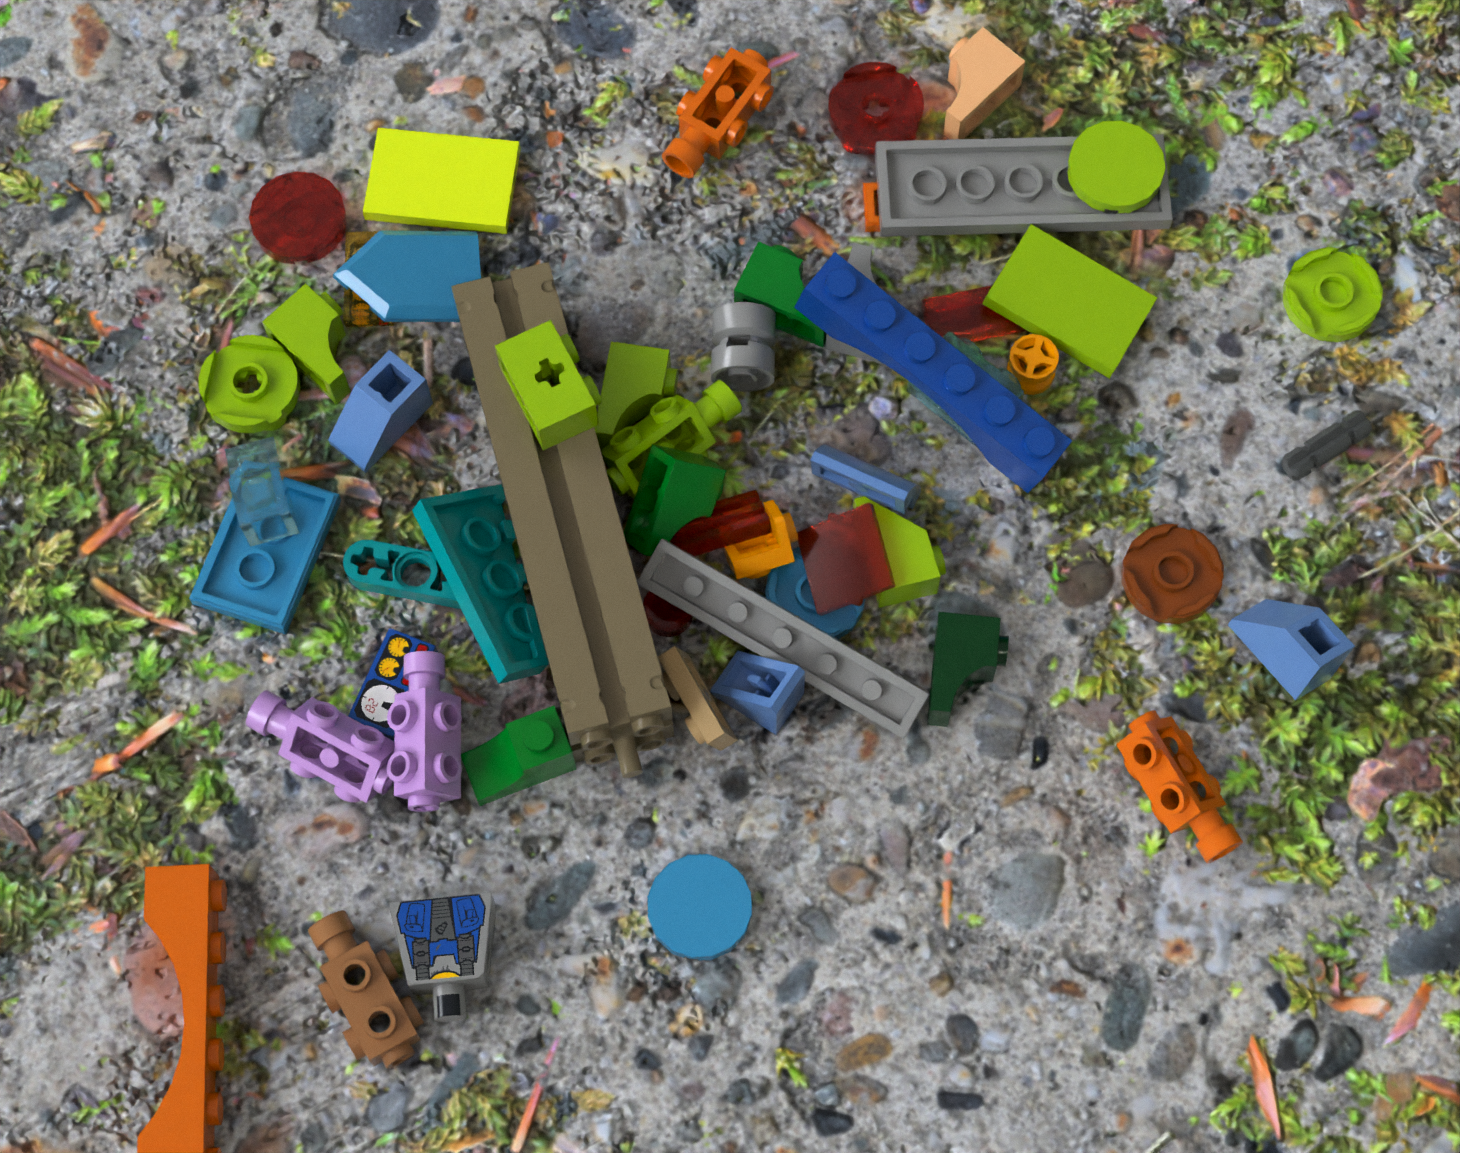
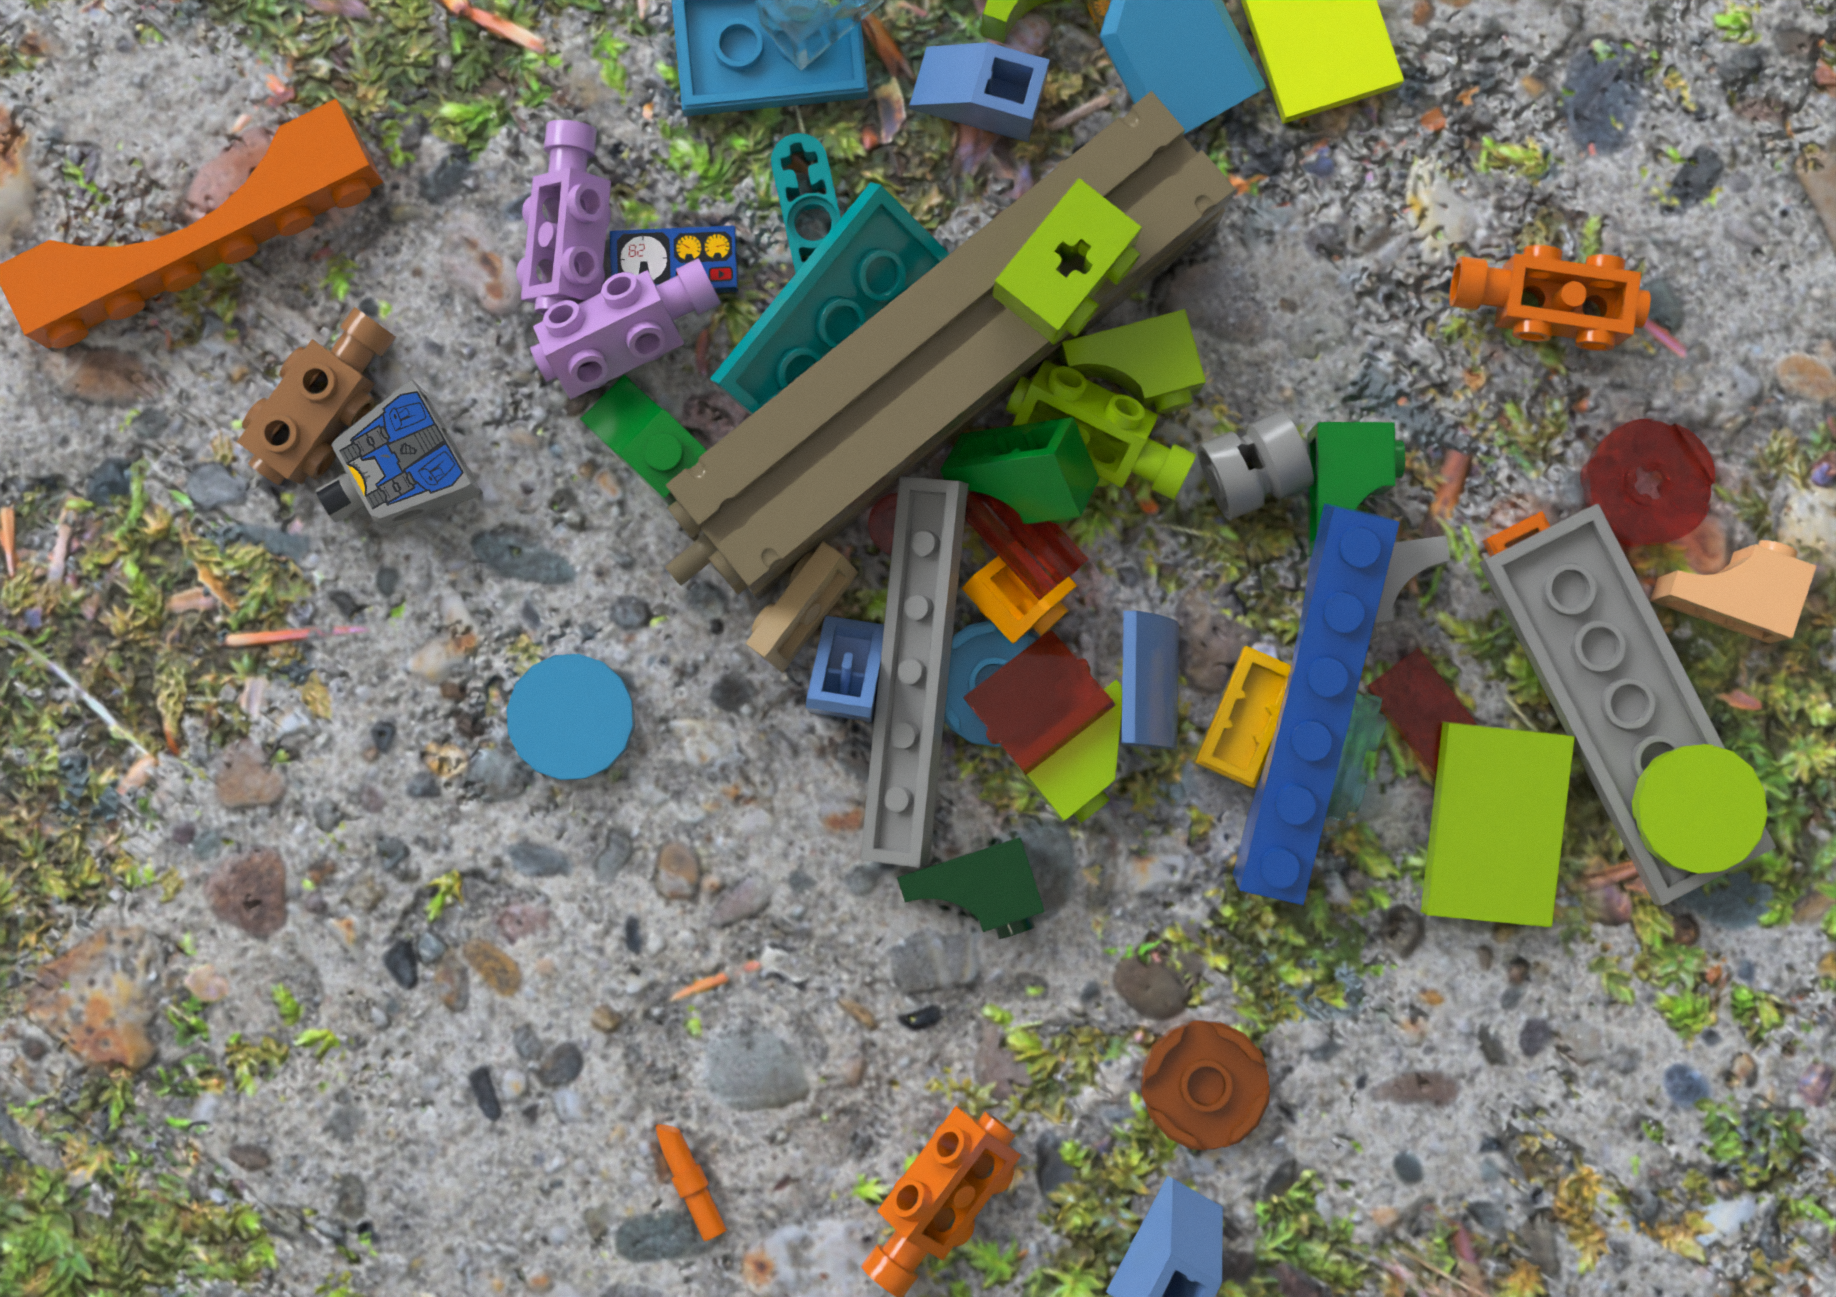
camera: 65 degrees right, 15 degrees up
(920, 430) = (1245, 718): none -> yellow plate
(1035, 352) = (1407, 812): light orange wheel -> none
(1093, 970) = (690, 1182): none -> orange piece
(1326, 445) = (1451, 1205): dark grey axle -> none
(1332, 294) = (1658, 1136): lime tile -> none

